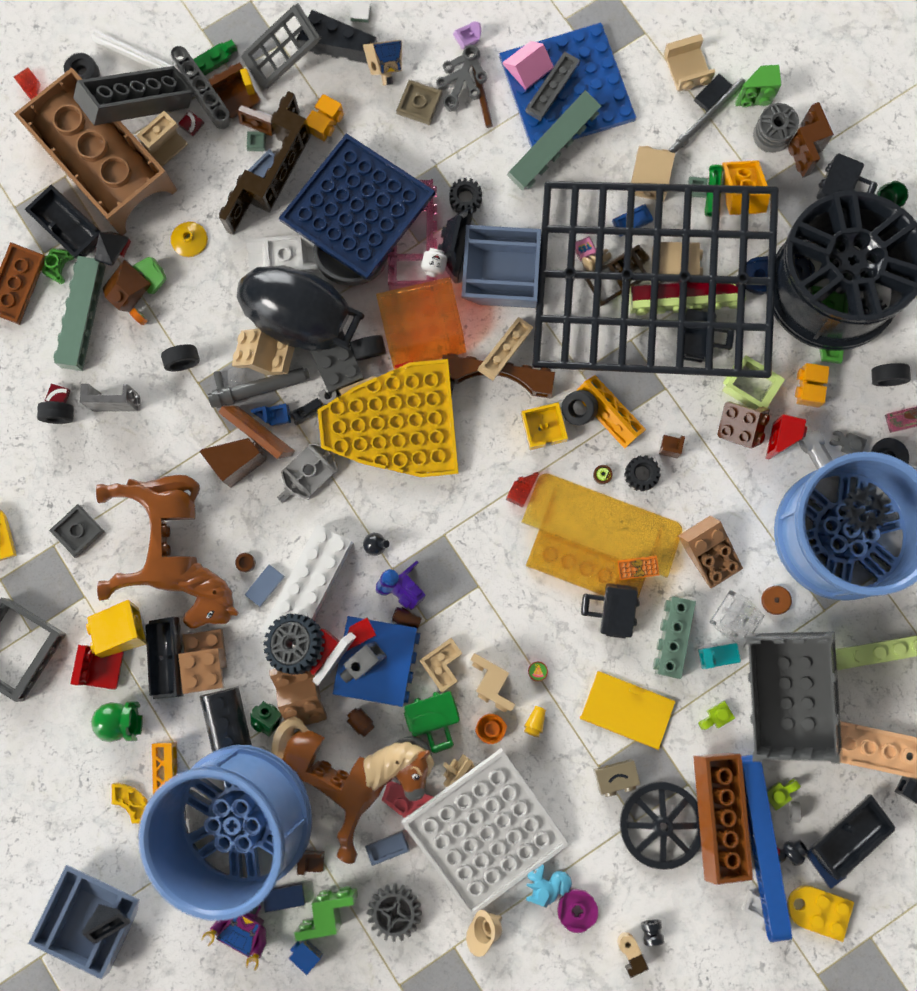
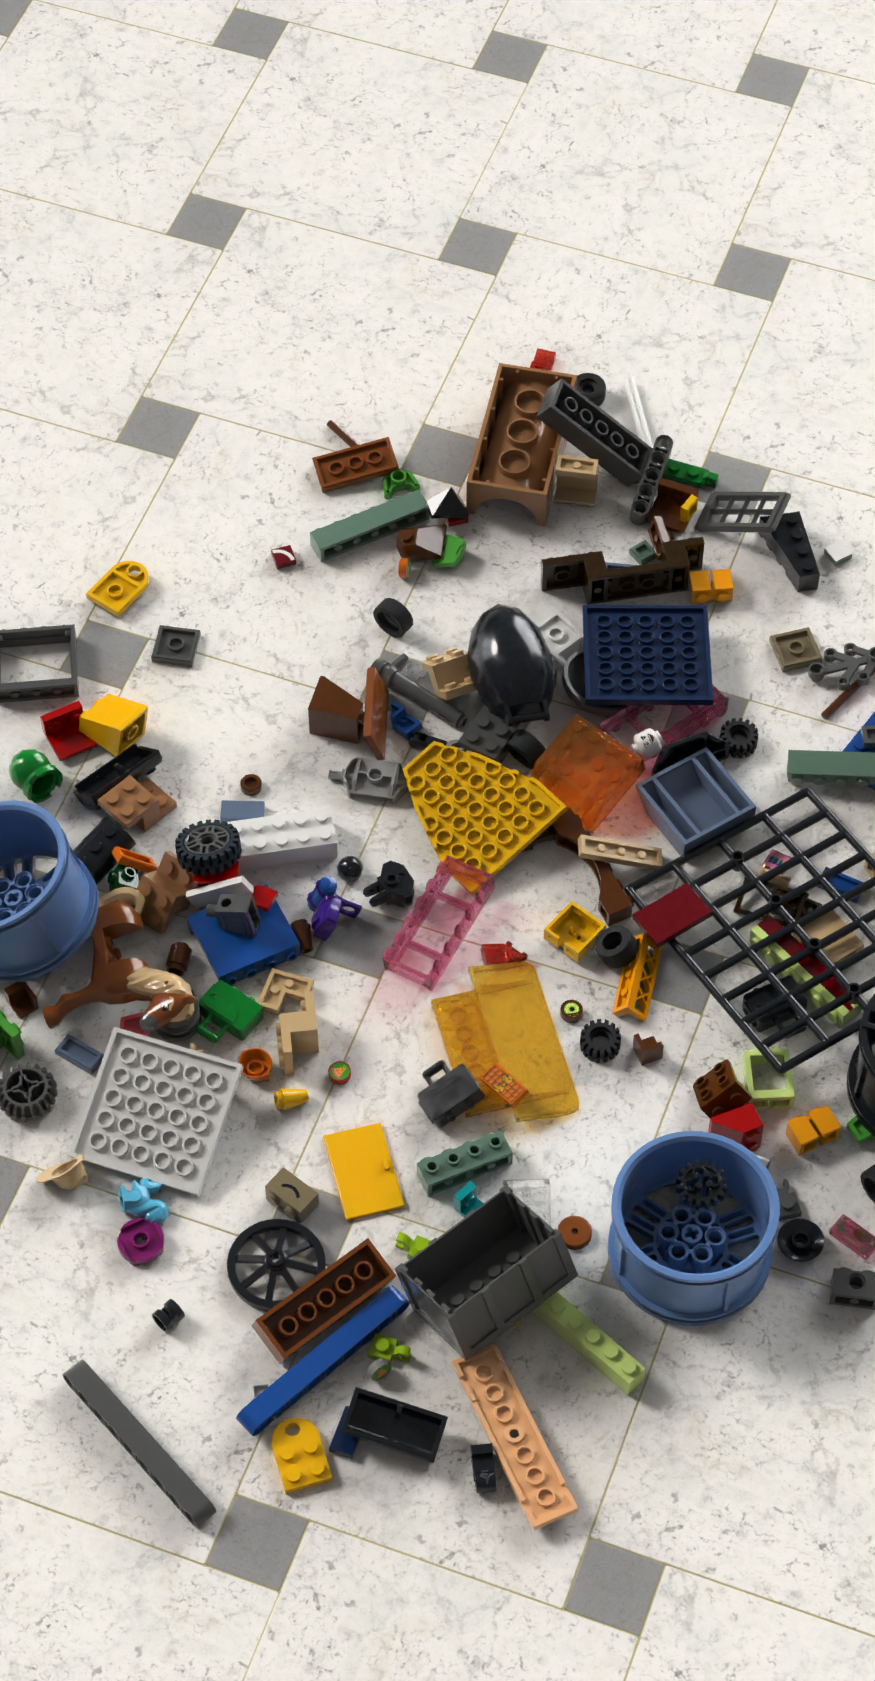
camera: 50 degrees right, 25 degrees down
(55, 412) = (266, 561): black tyre -> none
(64, 222) = (439, 461): black container -> none
(96, 402) = (317, 601): flat silver panel -> none
(167, 501) = (198, 718): dark orange animal -> none
(191, 123) = (614, 496): dark red tile -> none
(193, 245) = (508, 562): yellow dish -> none
(254, 699) = (134, 860): none -> orange tile
(384, 59) = (806, 593): torso -> none
(414, 527) = (393, 886): none -> black hinge
(454, 532) = (423, 905): none -> clear pink window
(586, 352) = (672, 915): none -> dark red tile
(631, 949) = (134, 1312): leg -> none
(711, 551) = (573, 1144): medium nougat slope -> none
(794, 851) = (338, 1389): black animal -> none

